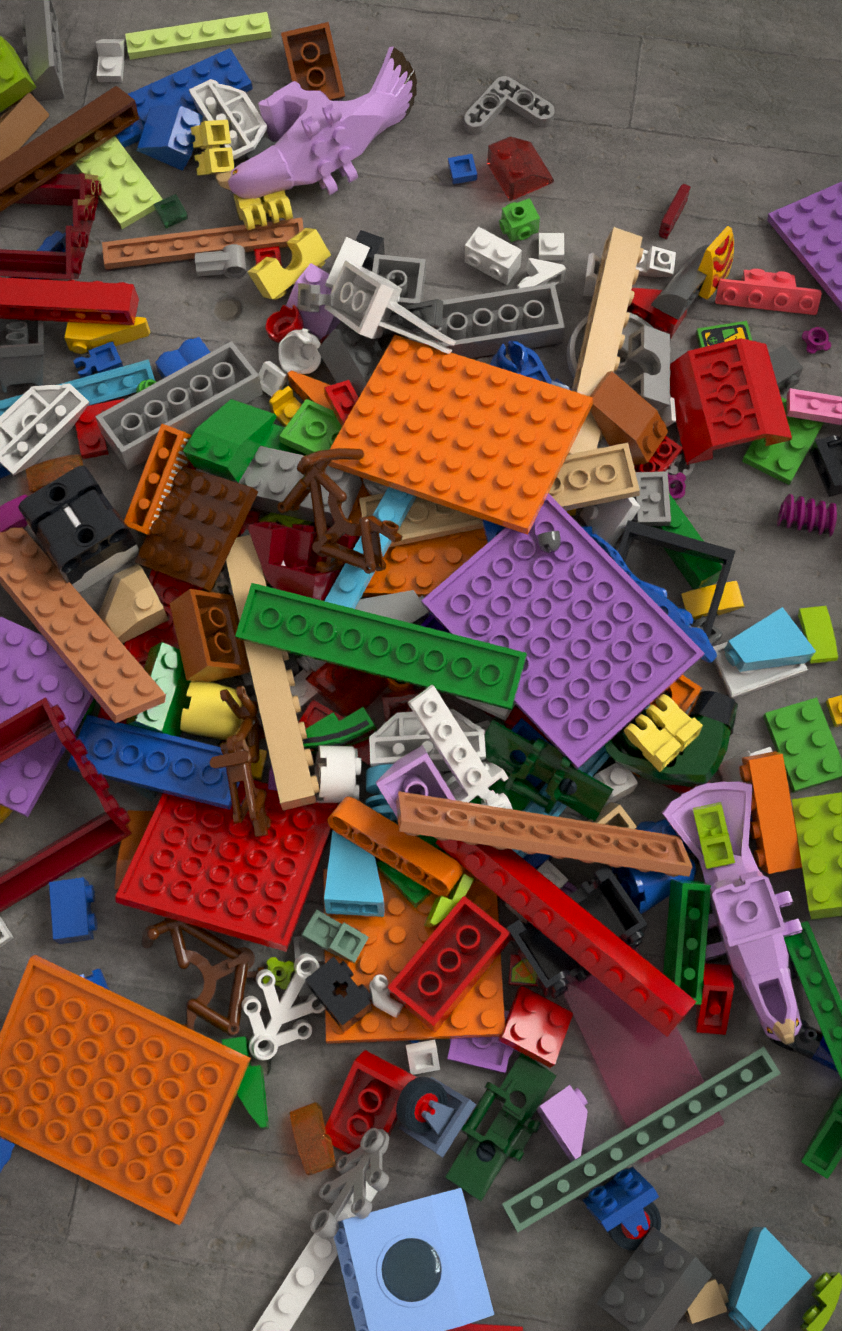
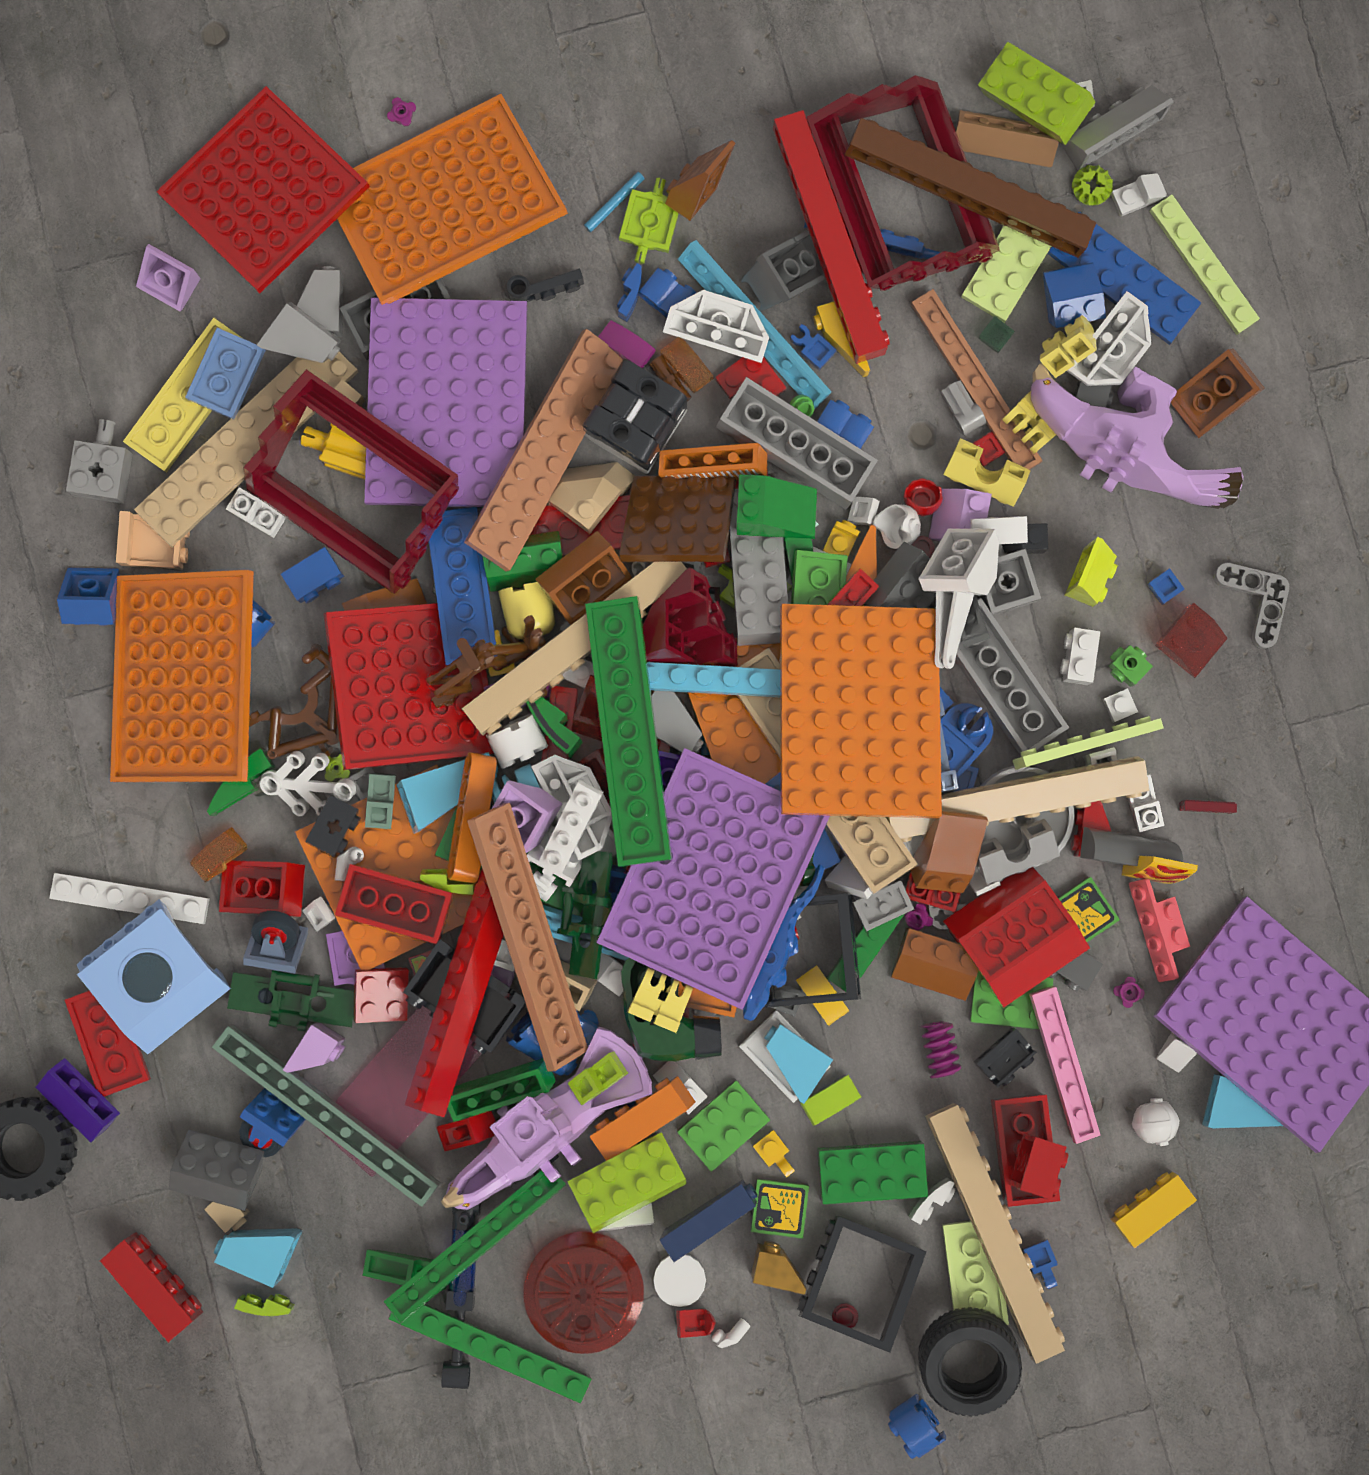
camera: 60 degrees right, 15 degrees up
(80, 97) = (1082, 190): none -> lime gear
(310, 298) = (950, 512): light grey plate -> none
(325, 544) = (704, 642): reddish brown piece -> none
(353, 1181) = (226, 905): light grey plant -> none
(420, 216) = (1092, 572): none -> neon yellow slope
(542, 273) = (1082, 714): white slope -> none
(549, 541) = (782, 835): dark grey hinge -> none
(573, 281) = (1077, 744): none -> yellowish green plate
(723, 487) = (934, 964): none -> dark orange slope

